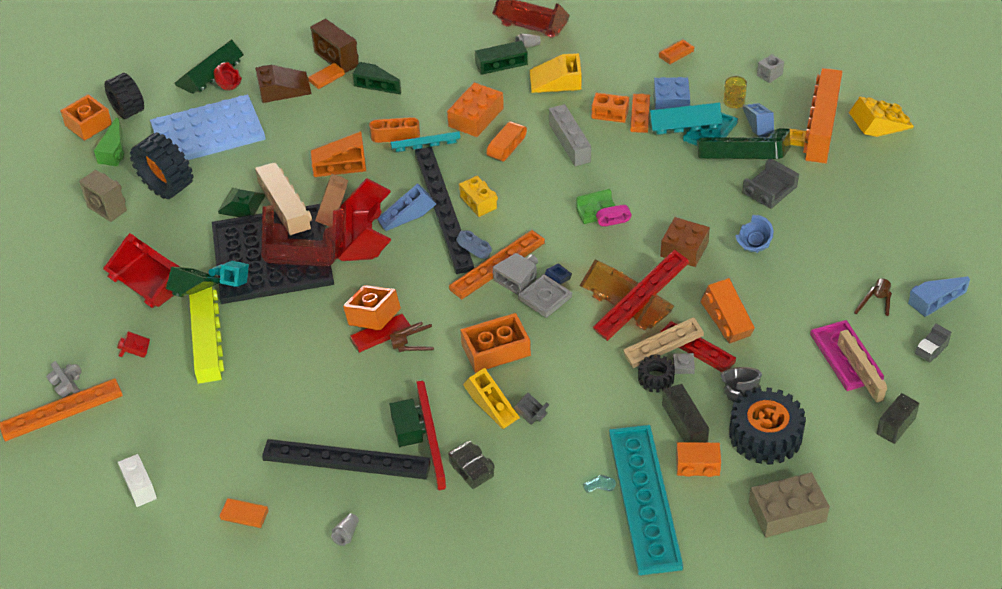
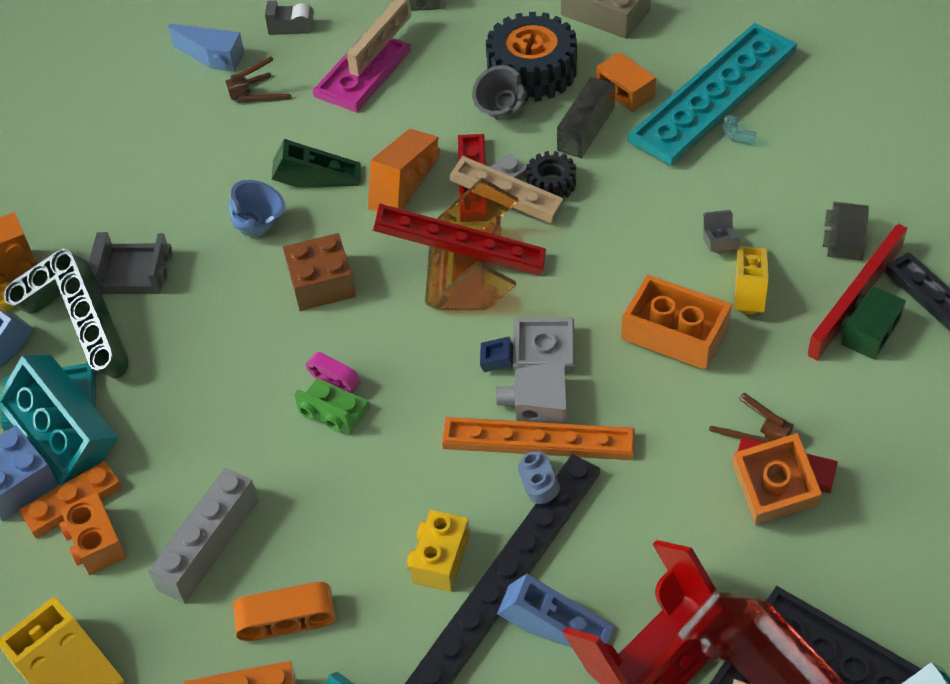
camera: 130 degrees left, 5 degrees up
(769, 281) = (311, 167): none -> dark green slope

